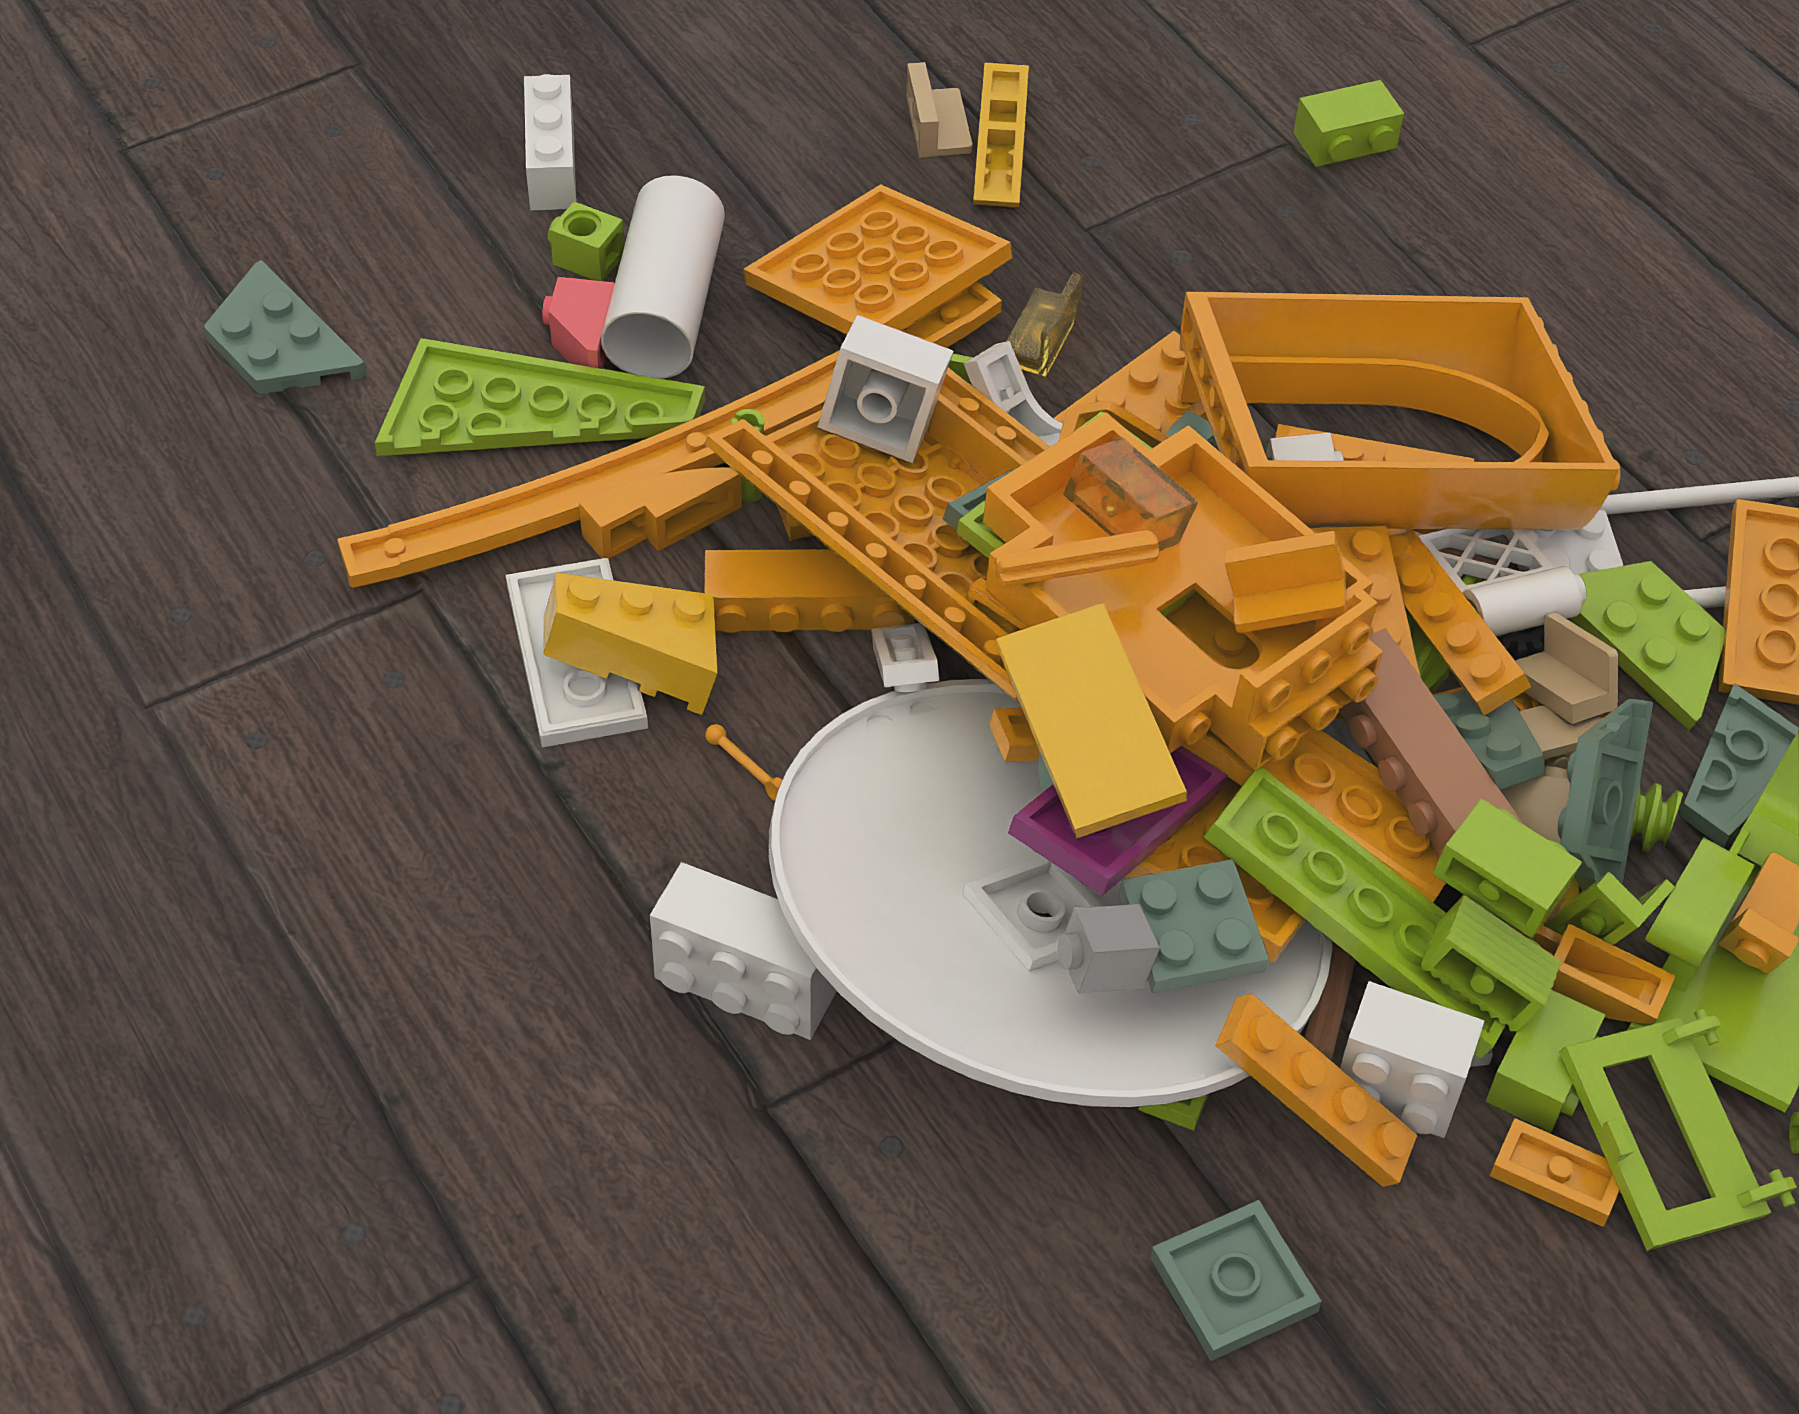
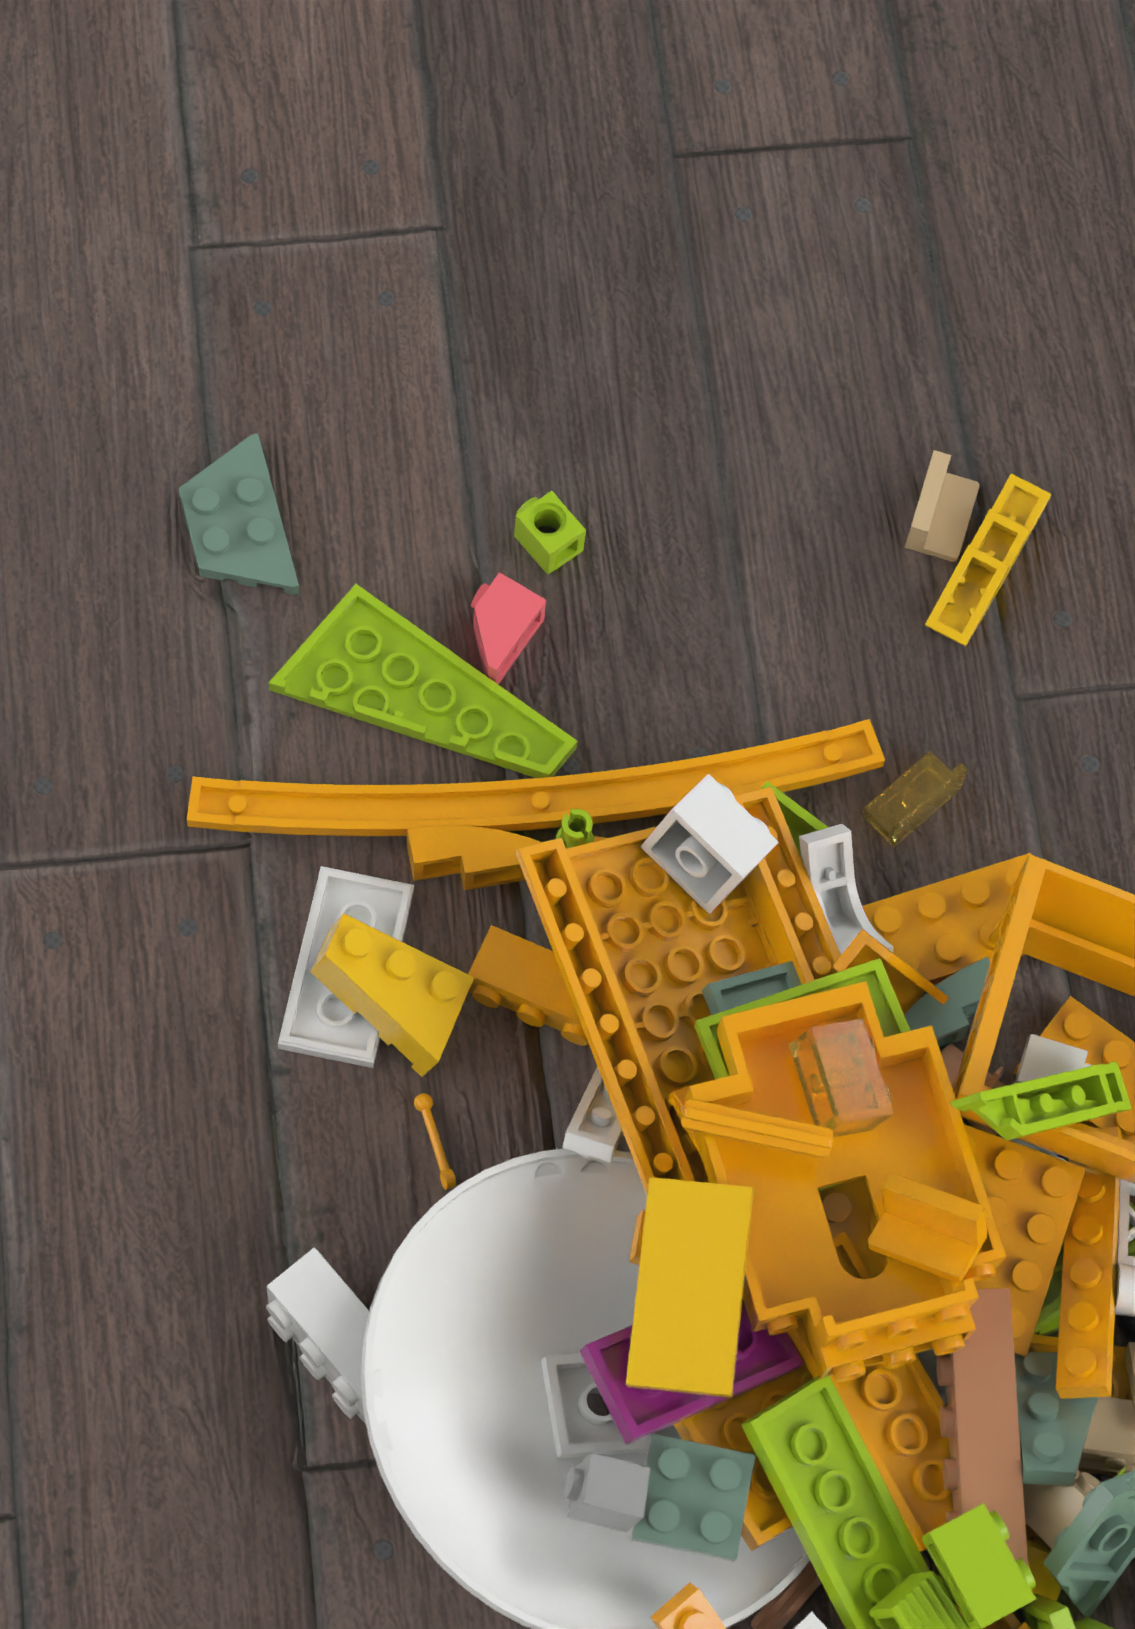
camera: 20 degrees right, 15 degrees up
(549, 142) = (566, 403): white brick -> none
(663, 277) = (593, 609): white piece -> none
(878, 261) = (792, 673): light orange plate -> none
(1330, 436) = (1050, 1101): none -> lime wedge

